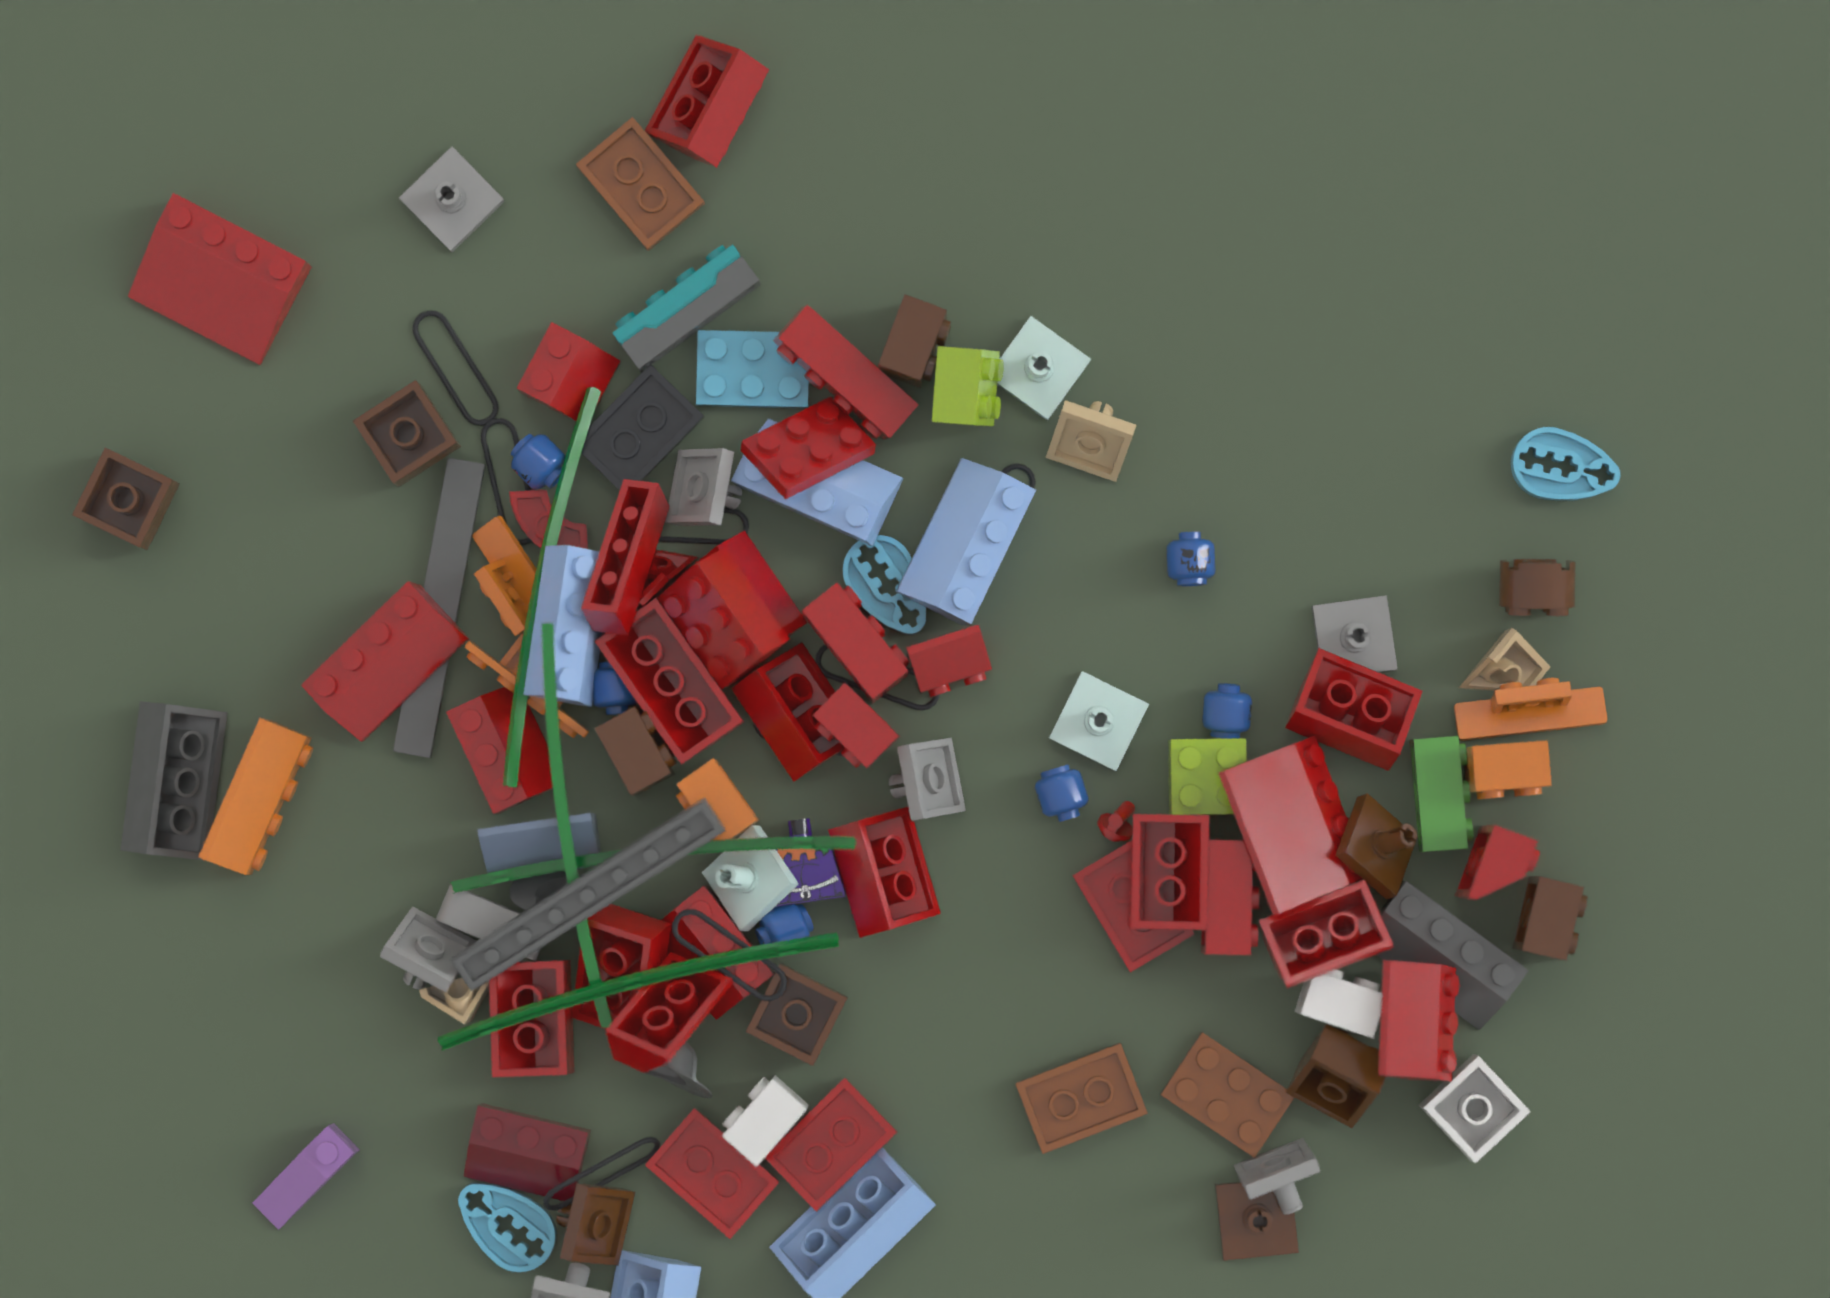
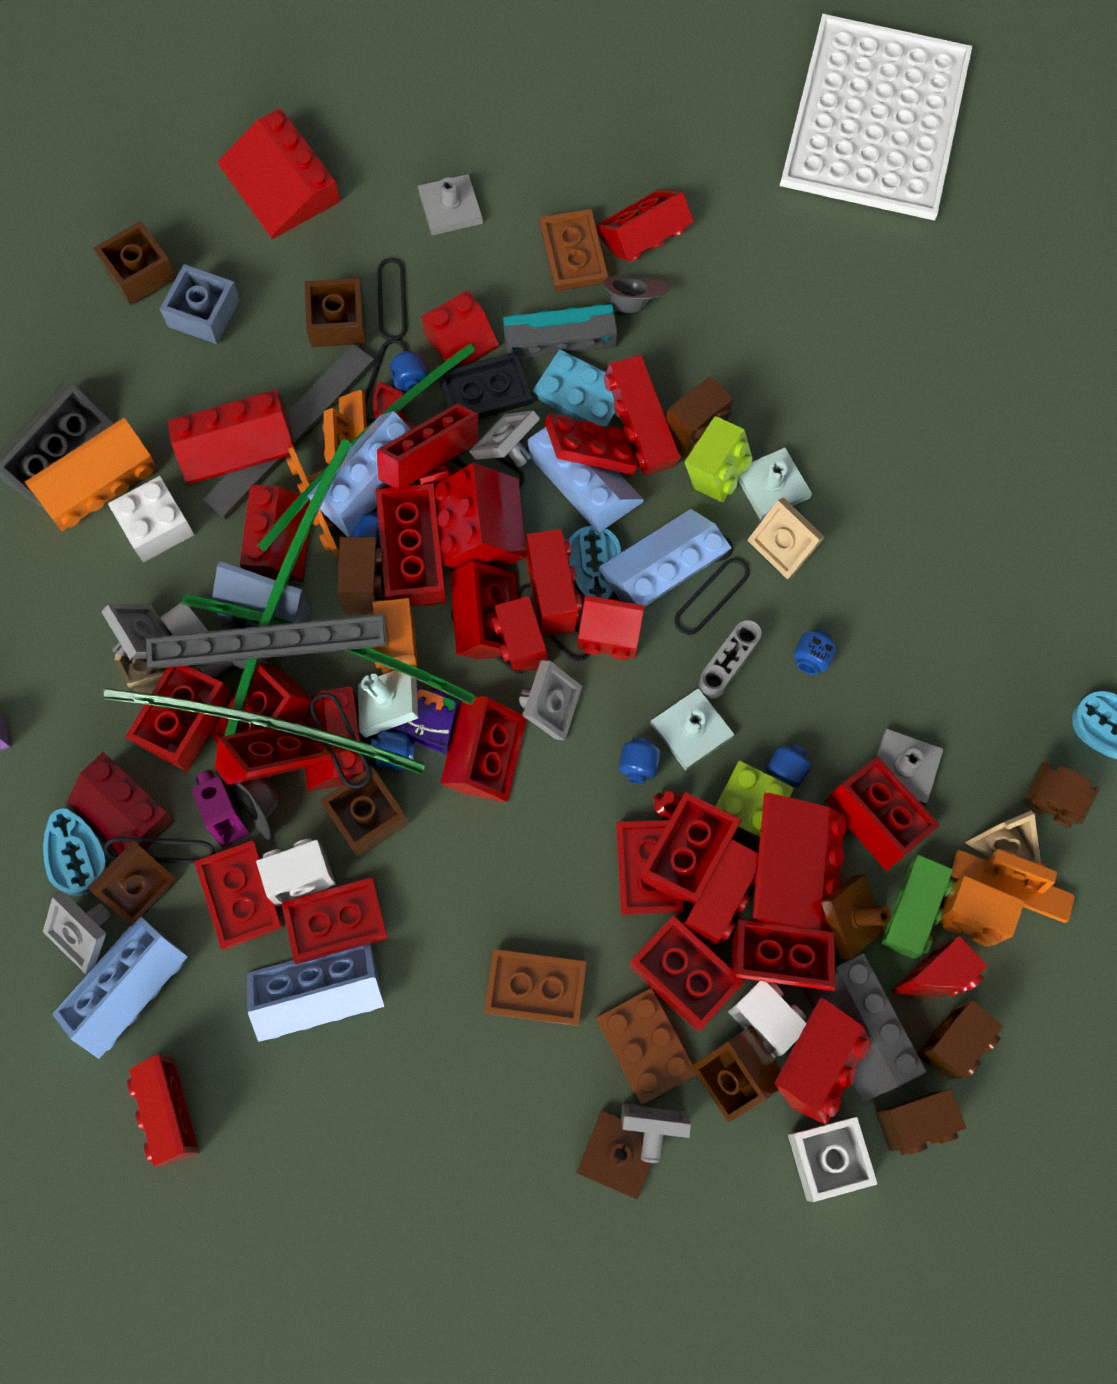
camera: 25 degrees right, 15 degrees down
(239, 510) = (200, 304): none -> sand blue brick
(352, 809) = (151, 519): none -> white brick
(648, 1102) = (218, 809): none -> magenta torso
(747, 205) = (633, 293): none -> dark grey piece
(1055, 549) = (676, 621): none -> black piece
(1110, 611) = (744, 651): none -> light grey beam
(1230, 1001) = (685, 974): none -> red brick
(1546, 1023) = (921, 1120): none -> reddish brown brick

